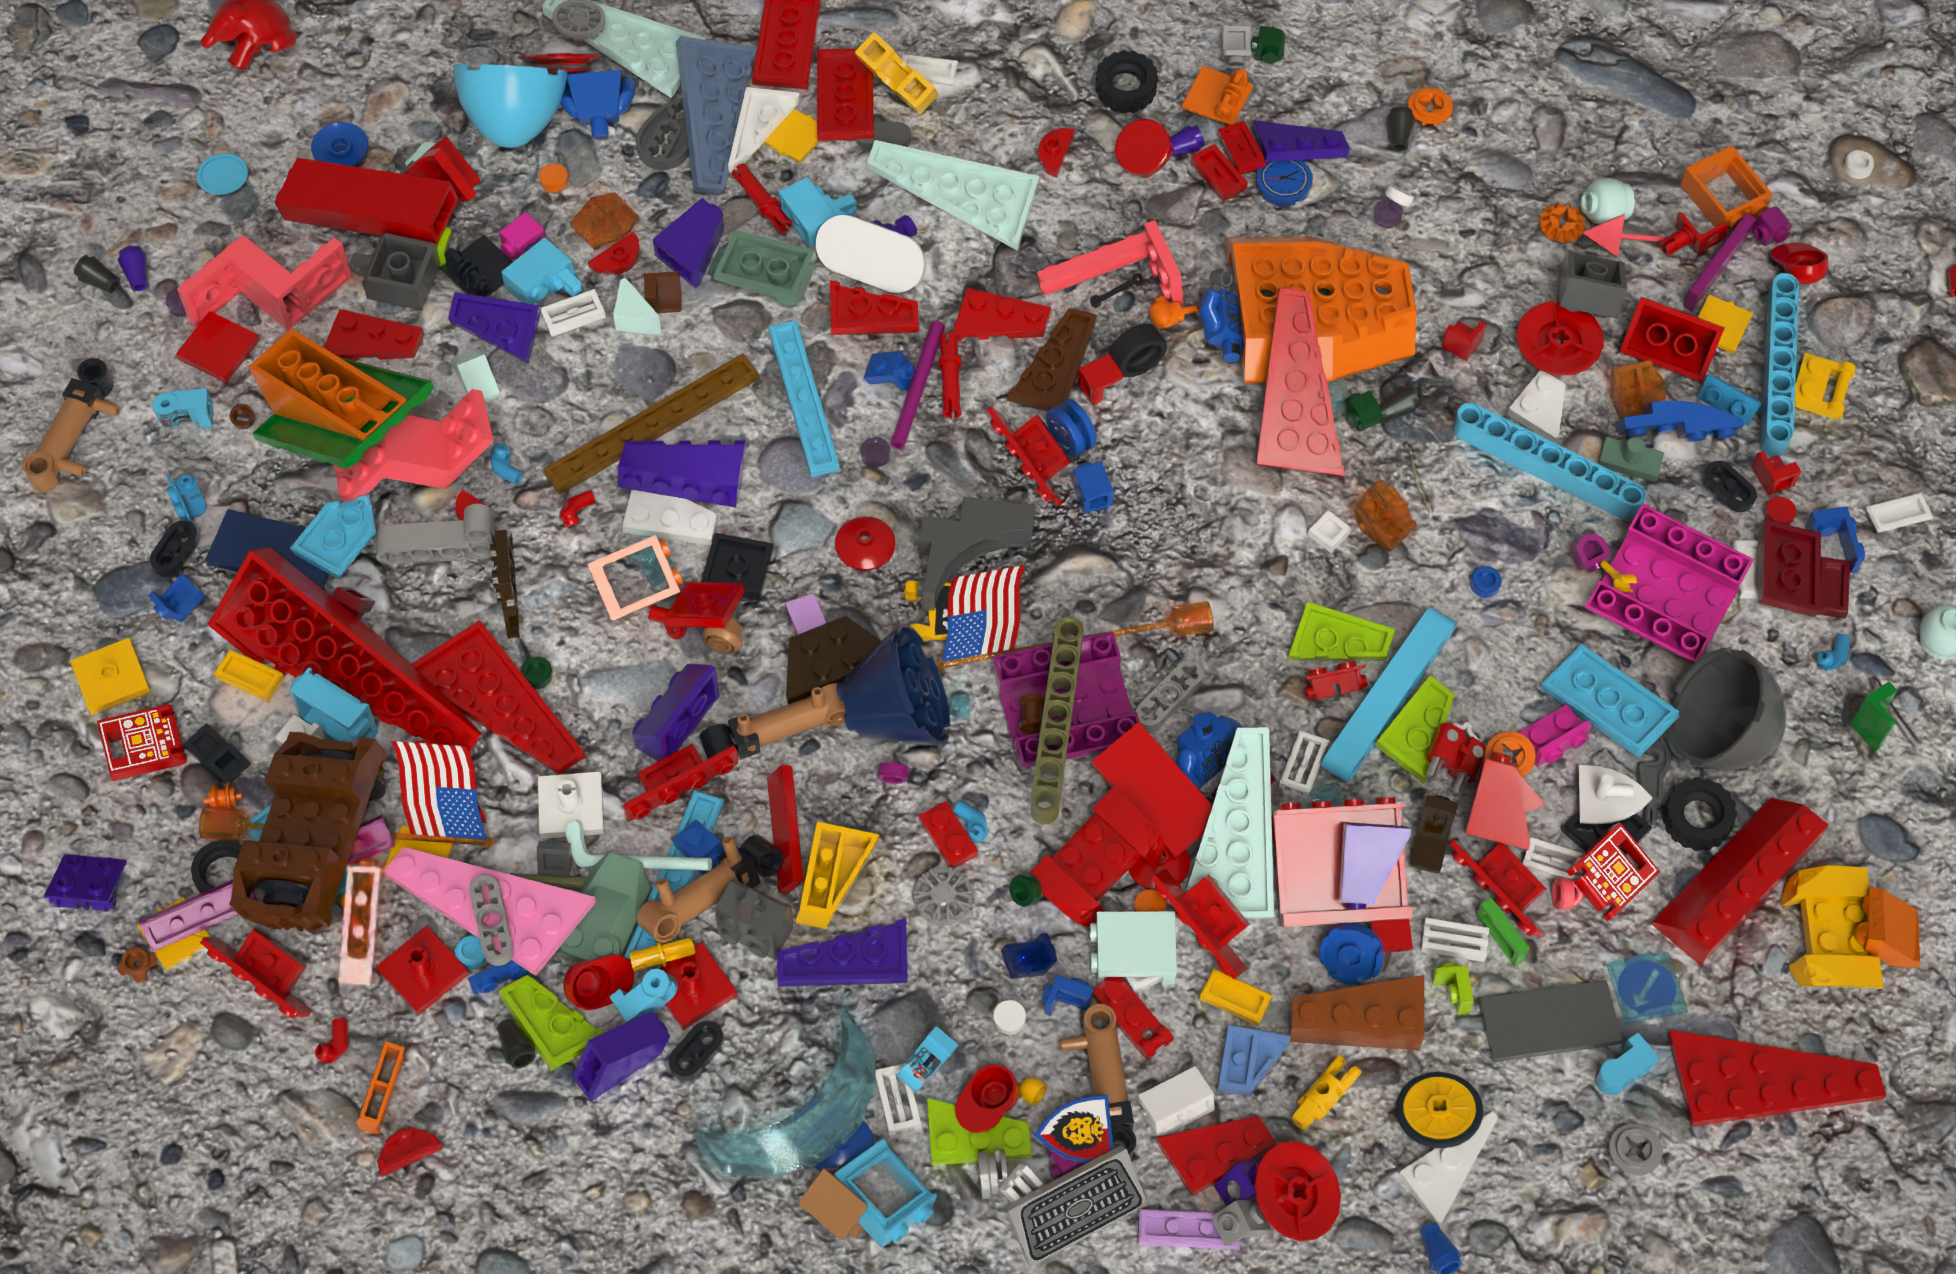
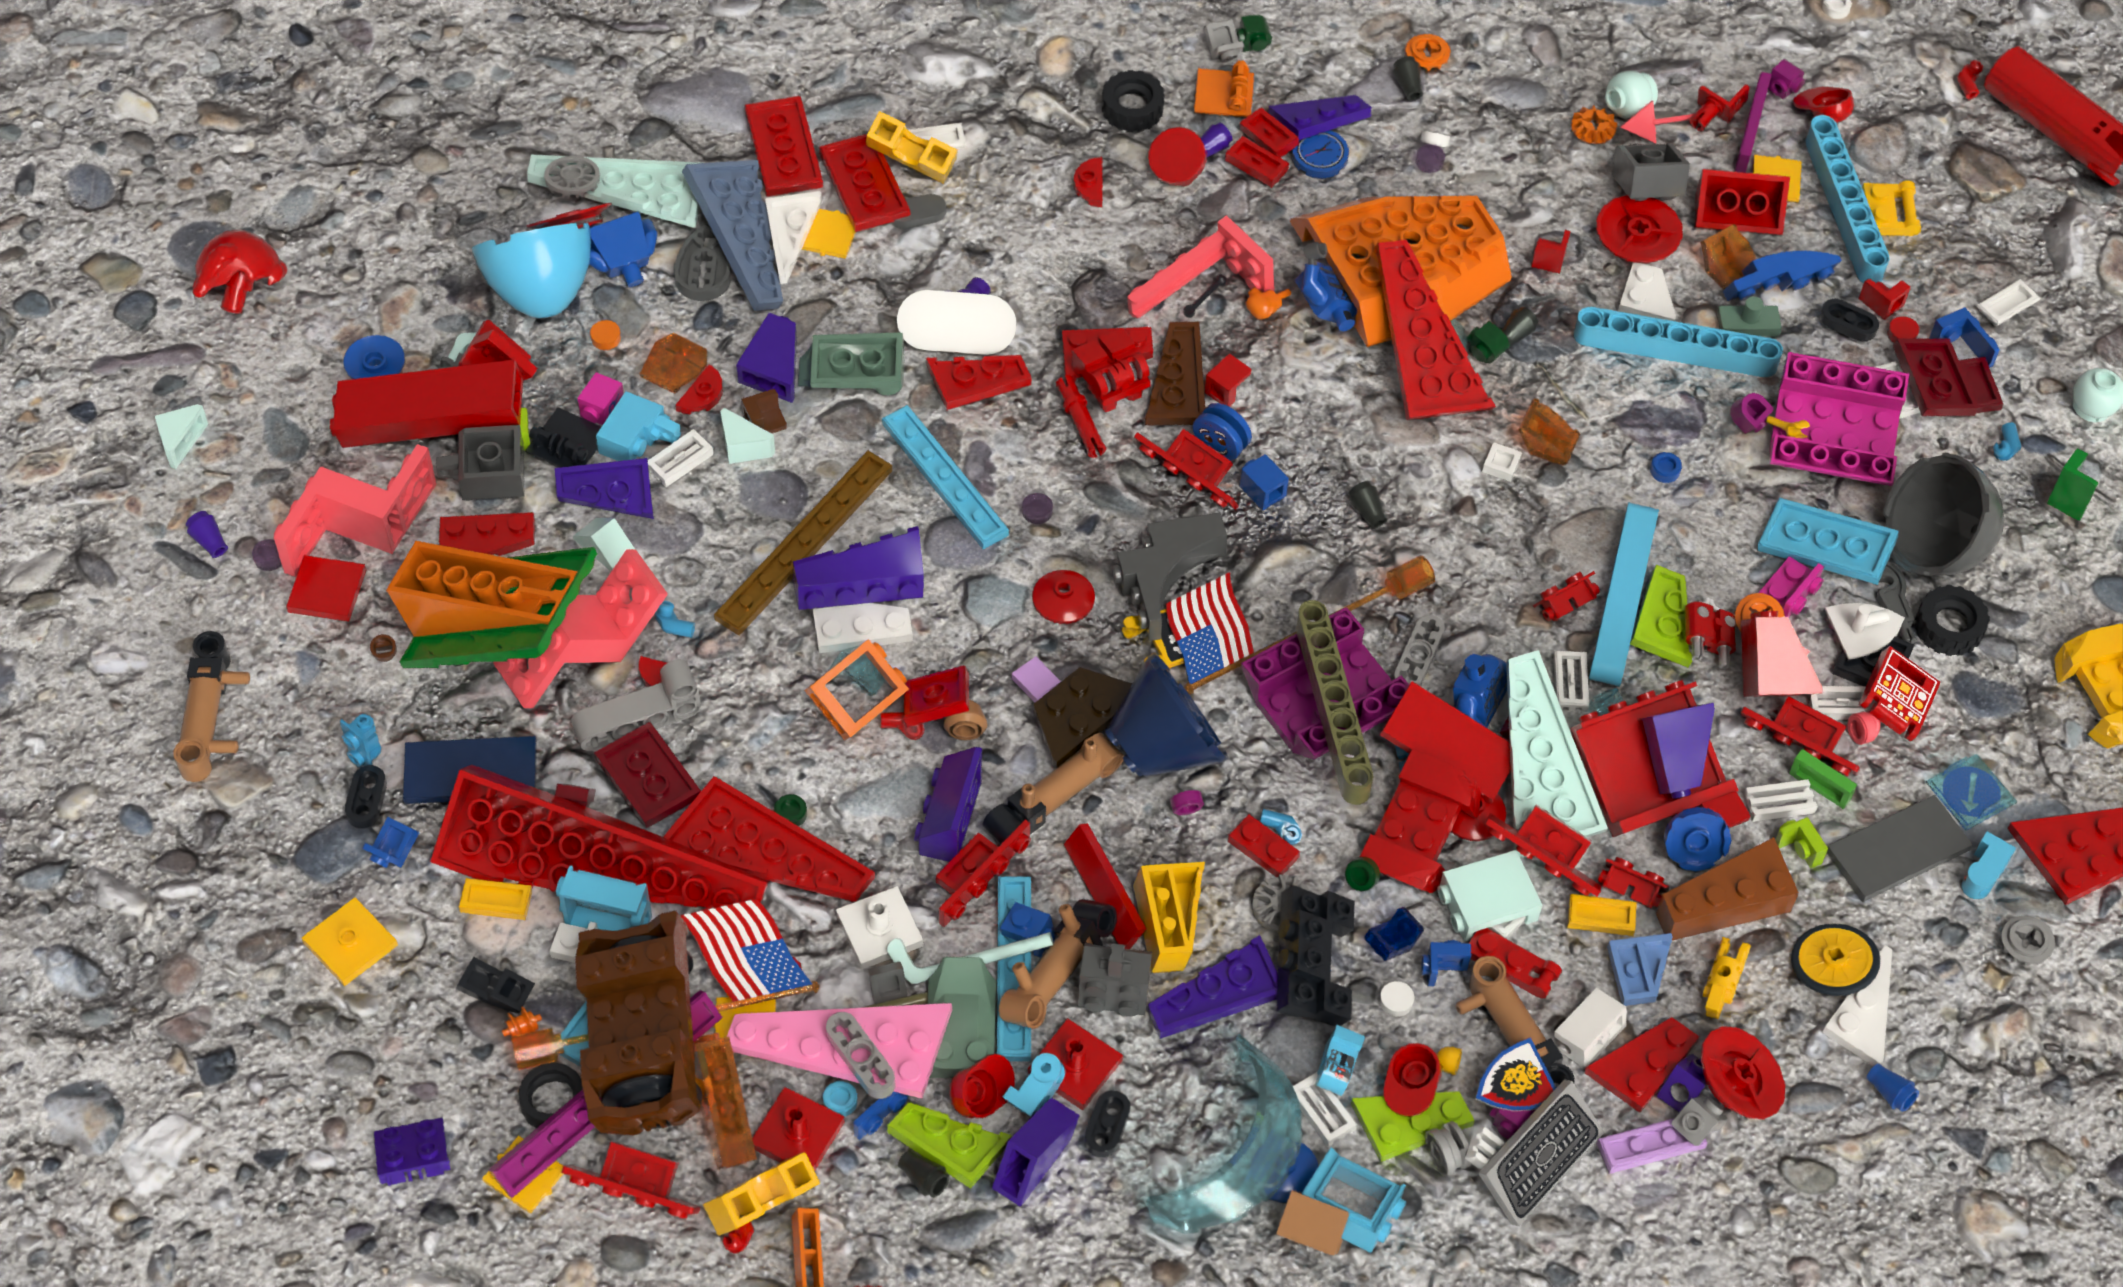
camera: 20 degrees left, 5 degrees down
(96, 274) = (168, 551): pearl dark grey cone -> none
(135, 955) = (499, 1206): dark orange plate -> none
(147, 166) = (180, 431): none -> light aqua slope
(148, 739) = (417, 990): red container -> none
(184, 407) = (317, 656): medium azure leg -> none
(222, 173) = (261, 418): medium azure piece -> none
(337, 535) = (532, 735): medium azure tile -> none
(359, 1018) = (761, 1193): none -> yellow arch
(423, 601) = (647, 774): none -> dark red plate
(505, 580) = (731, 738): dark brown wing -> none
(573, 505) = (760, 640): red arm -> none
(660, 954) = (1035, 1041): yellow axle -> none
(739, 561) = (948, 647): black tile -> none
(768, 206) = (833, 305): red pin -> none
(811, 208) = (877, 298): medium azure hinge -> none
(889, 368) = (1019, 425): blue bracket -> none
(917, 385) = (1052, 434): magenta piece -> none
(938, 949) = (1305, 955): none -> black bracket
(960, 706) = (1225, 721): clear light blue hinge -> none
(974, 192) = (1030, 240): light aqua wing -> none
(993, 342) = (1112, 369): none -> red hips
(1032, 713) = (1301, 706): reddish brown bush -> none
(1138, 349) = (1255, 341): black tyre -> none
(1149, 902) = (1483, 849): orange tile -> none
(1182, 535) = (1367, 502): none -> pearl dark grey cone
(1268, 966) = (1622, 875): none -> red hinge
(1339, 636) = (1550, 555): lime wing -> none
(1433, 833) = (1720, 688): dark brown bracket -> none
(1729, 399) = (1811, 239): dark azure hinge -> none
(1733, 164) = (1741, 41): orange window -> none
(1740, 877) = (2012, 666): red slope -> none

